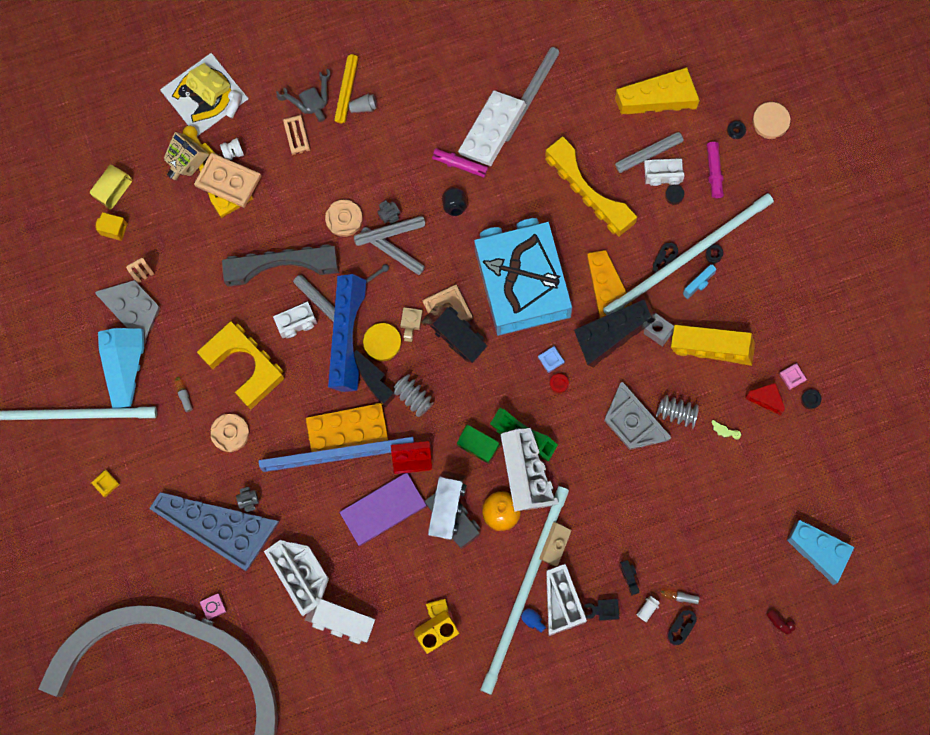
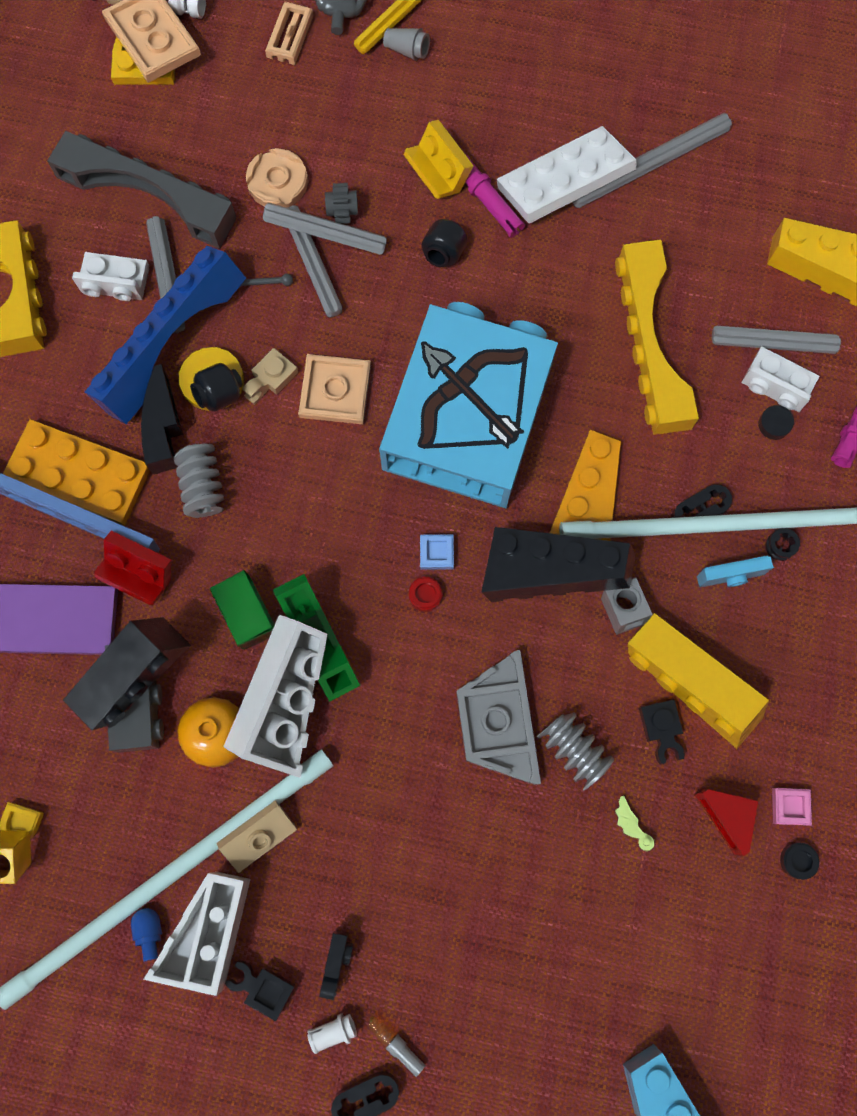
camera: 25 degrees right, 0 degrees up
(391, 344) = (216, 387): none -> black head
(424, 160) = (439, 161): none -> yellow bracket
(455, 332) = (319, 427): black wedge -> none
(709, 375) = (662, 724): none -> black plate

